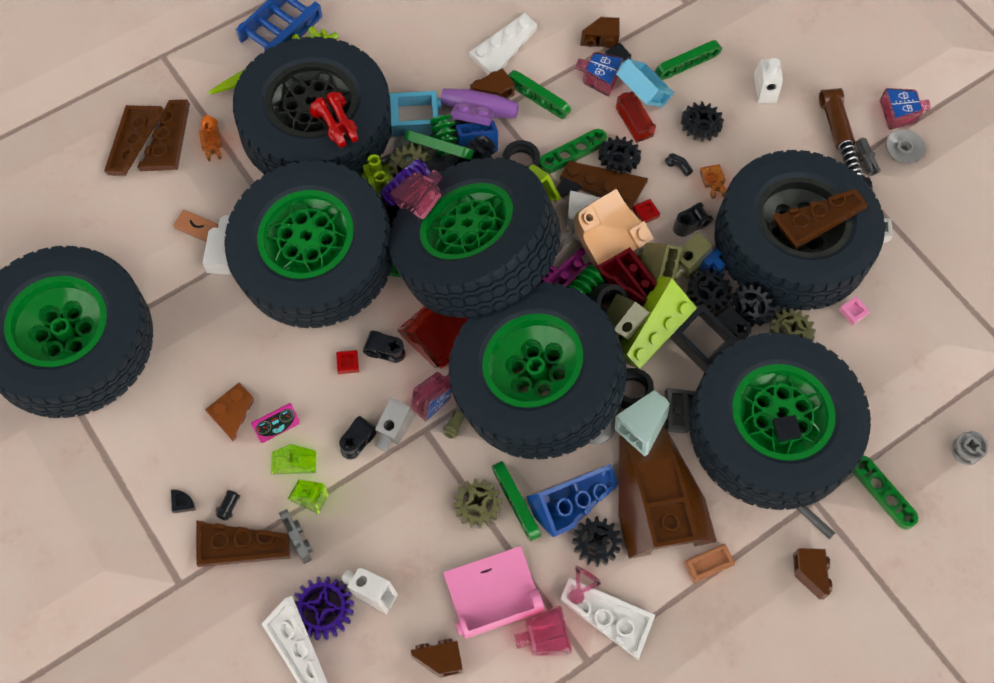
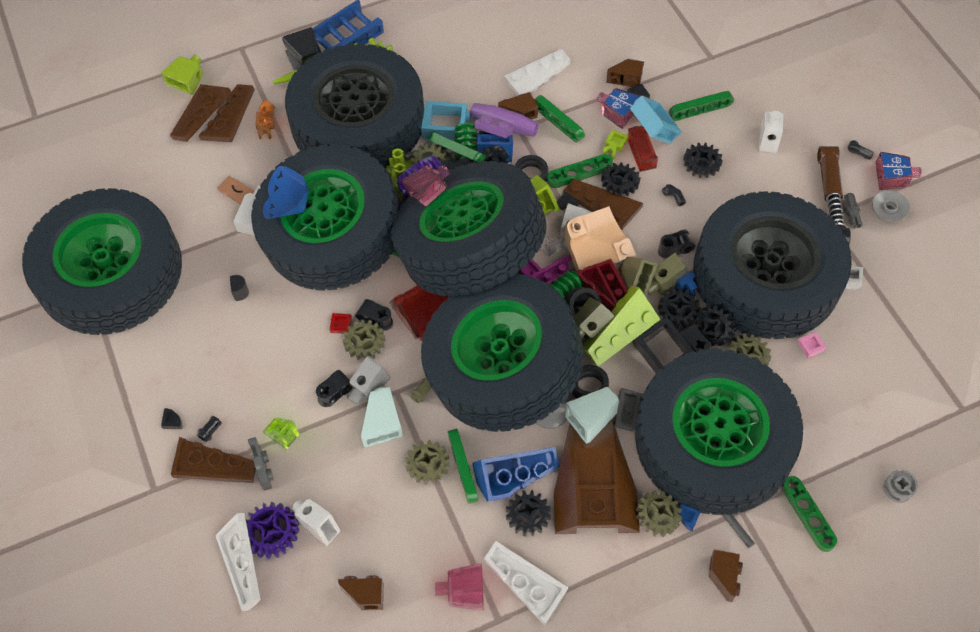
camera: 15 degrees right, 5 degrees down
(103, 95) = (184, 73): none -> lime torso
(224, 338) = (238, 287): none -> black brick
(231, 410) = (231, 348): dark orange wing -> none
(235, 48) = (301, 46): none -> black piece
(266, 230) = (291, 195): none -> blue piece
(275, 423) = (266, 365): slope -> none
(293, 460) = (275, 399): clear neon green slope -> none
(336, 130) = (368, 122): red piece -> none
(370, 372) = (362, 337): none -> olive gear
(417, 462) = (381, 418): none -> light aqua slope
(431, 395) = (405, 362): clear pink torso -> none
(493, 592) = (424, 542): bright pink door -> none
(577, 595) = (498, 557): clear pink piece -> none
(605, 114) = (615, 142): none -> lime plate
(646, 211) = (635, 231): red tile -> none
(709, 563) = (629, 550): nougat tile -> none
(714, 178) = (702, 209): clear orange plate -> none
(729, 519) = (654, 504): none -> olive gear
(762, 516) = (689, 516): none -> blue tile
(786, 428) = (720, 436): black tile -> none
(815, 219) = (782, 256): reddish brown wing -> none
(858, 87) = (855, 148): none -> black arm

